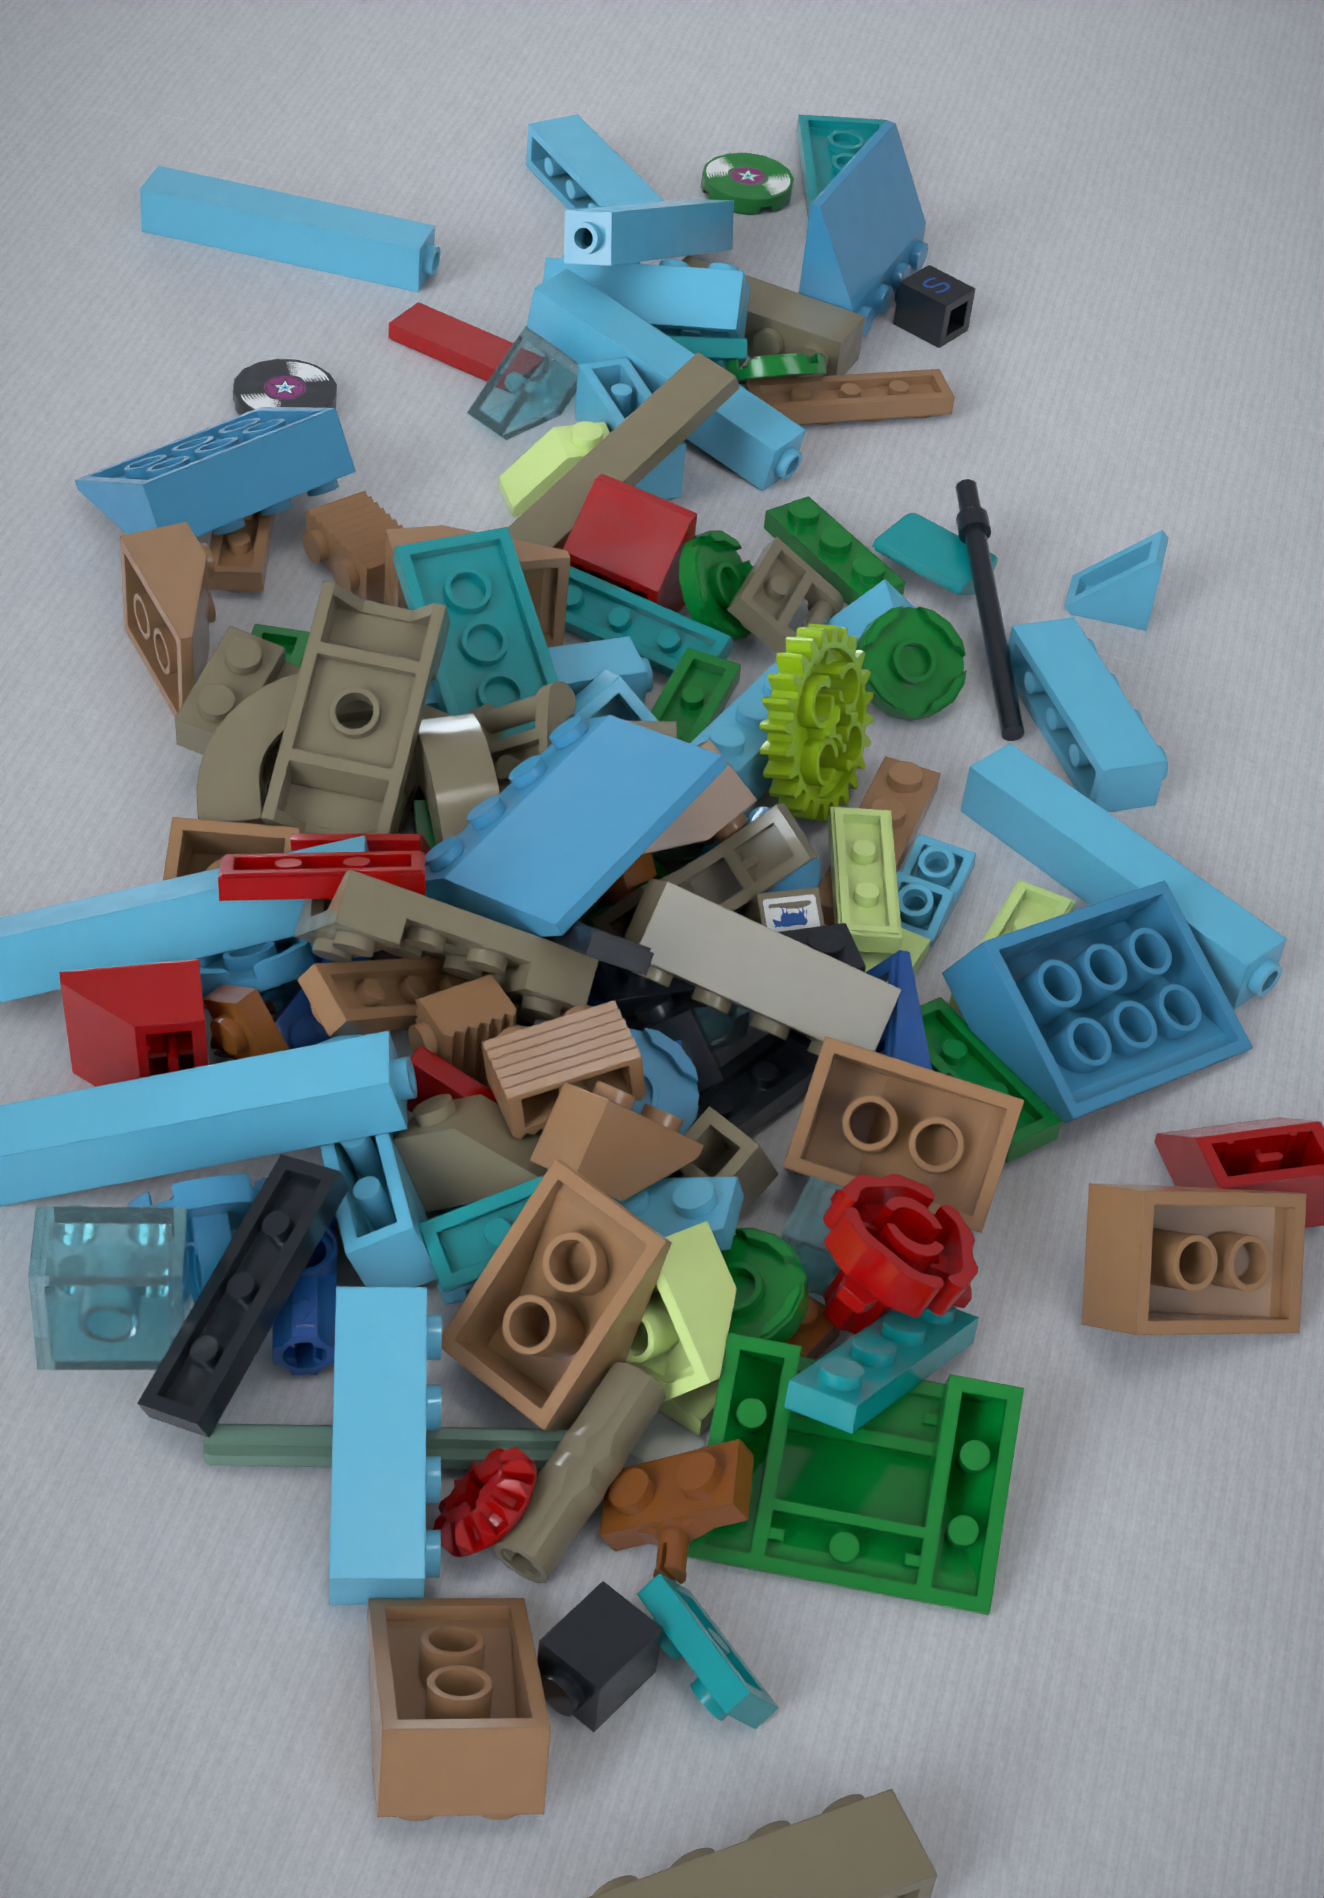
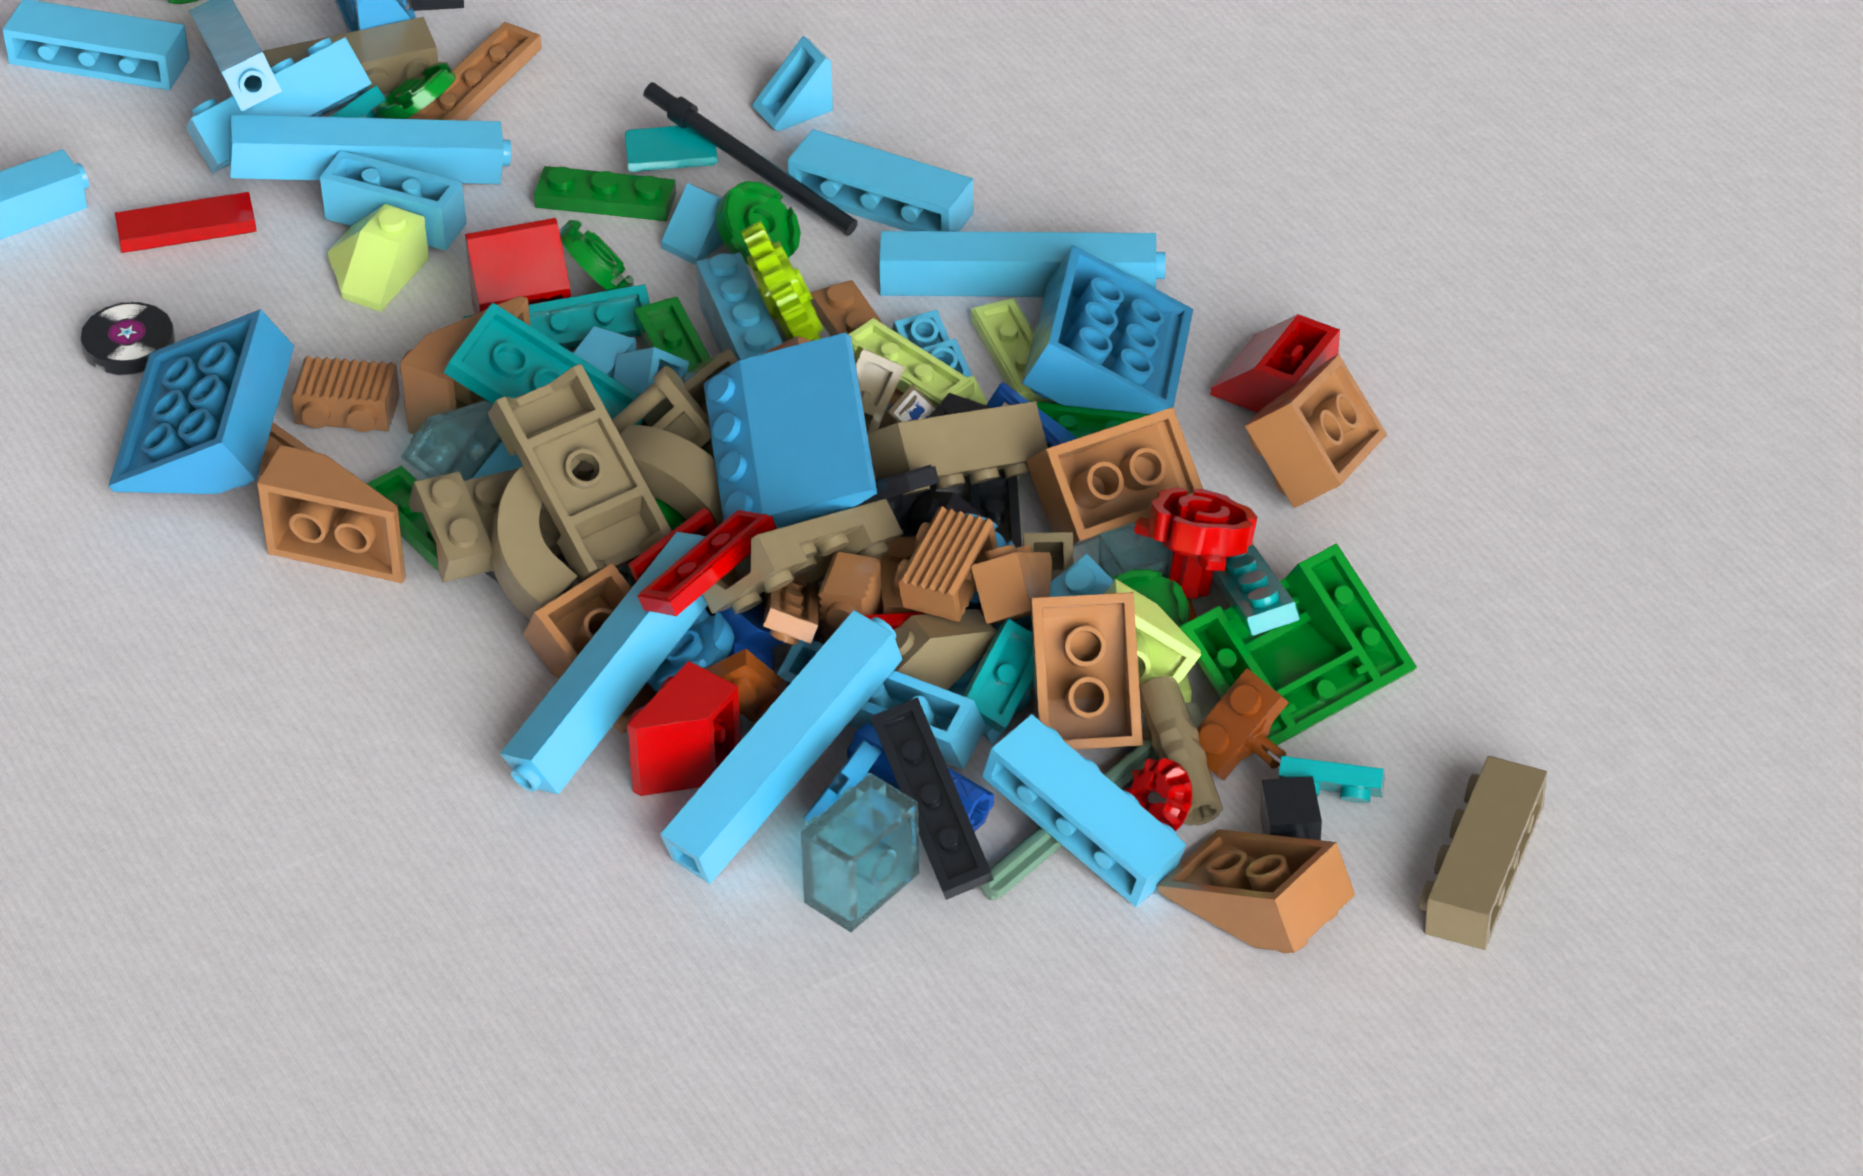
camera: 40 degrees left, 0 degrees up
(527, 387) = (280, 219): clear light blue slope -> none
(630, 448) = (442, 221): dark tan tile -> none
(775, 592) = (639, 243): dark tan plate -> none

